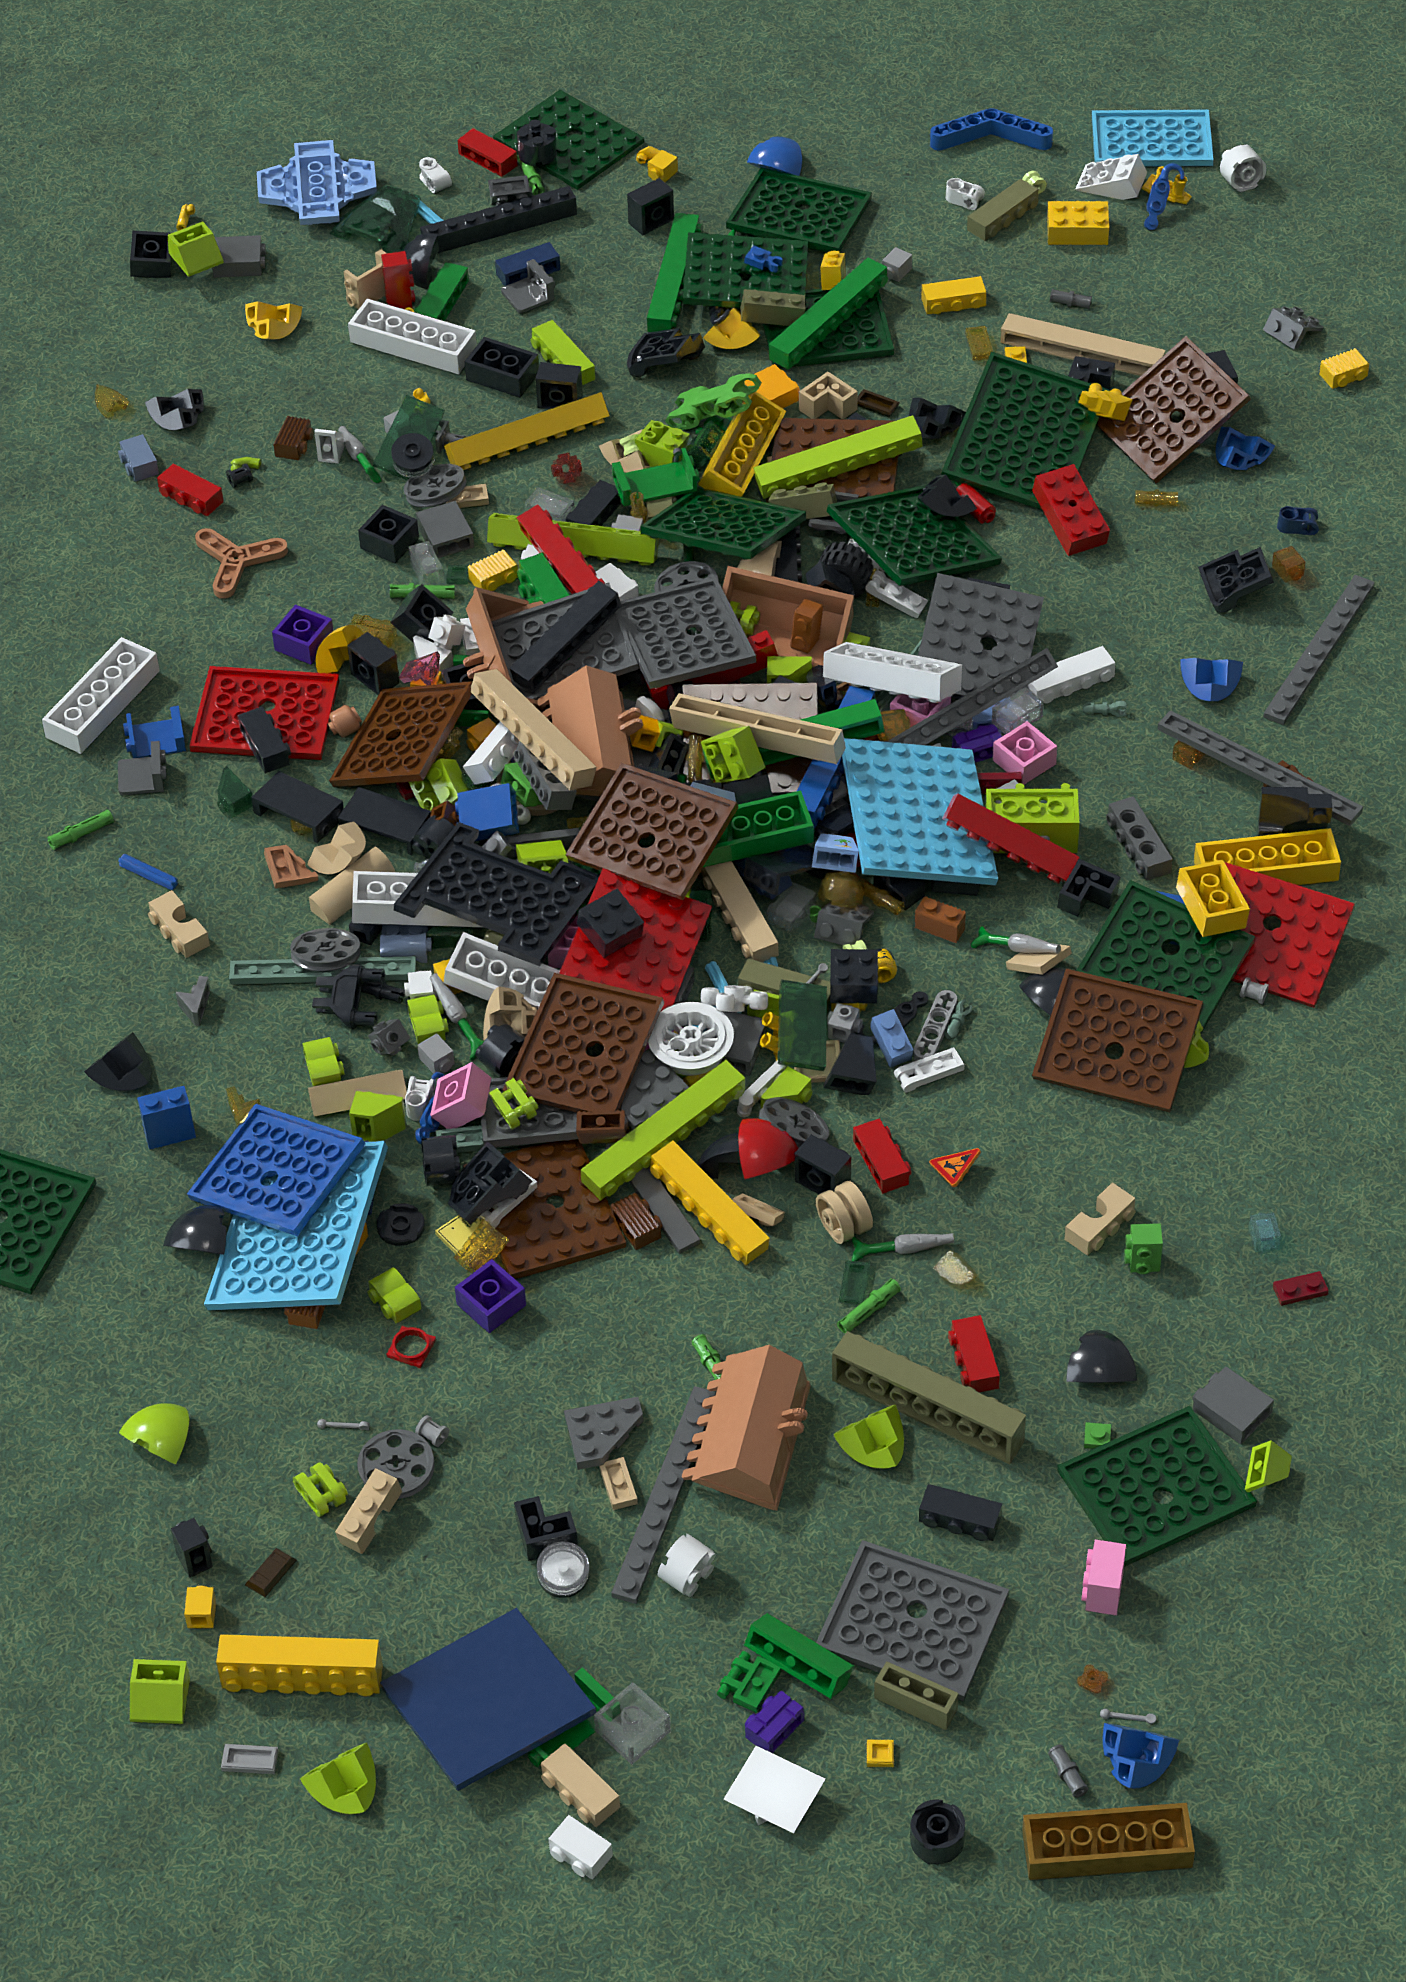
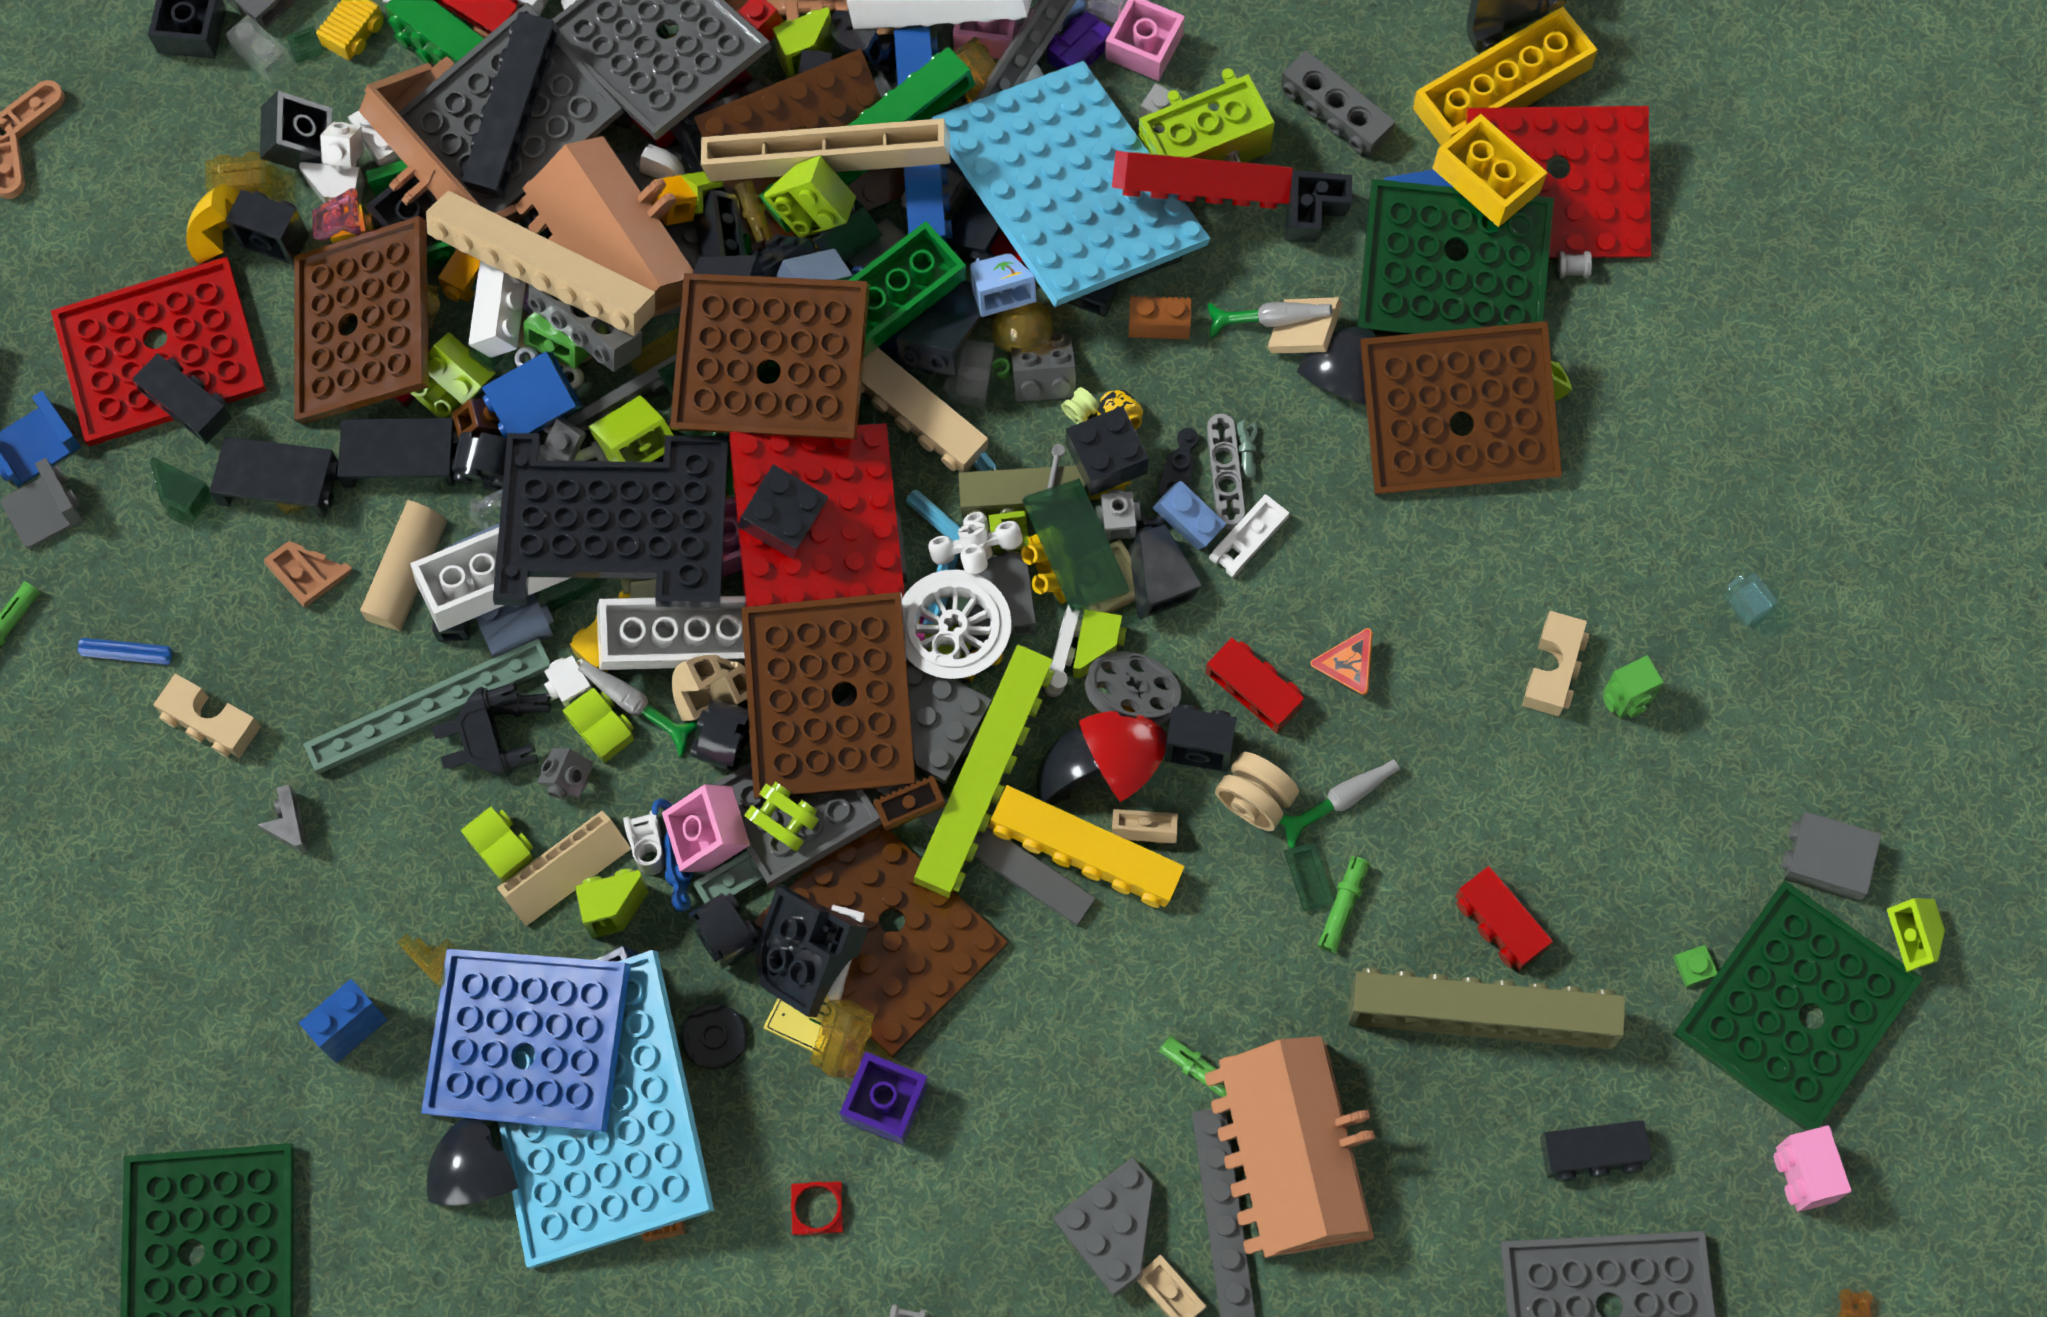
camera: 25 degrees left, 20 degrees up
(122, 1067) = (242, 960): black brick -> none
(301, 633) = (151, 216): dark purple brick -> none
(322, 953) = (424, 686): dark grey wedge -> none
(341, 852) = (367, 523): tan brick -> none
(344, 721) = (270, 323): nougat head -> none
(394, 1295) = (761, 1147): lime brick -> none
(436, 1054) = (637, 772): light grey brick -> none
(439, 591) = (262, 92): bright green pin -> none
(636, 1221) = (1006, 906): reddish brown brick -> none
(875, 1439) = (1445, 1091): lime brick -> none
(882, 897) = (1073, 313): clear yellow pin -> none
(955, 1269) = (1422, 808): clear yellow brick -> none
(996, 780) = (1133, 89): dark red plate -> none
(1101, 1359) = (1656, 864): black brick -> none
(1300, 1288) = (1824, 657): dark red plate -> none

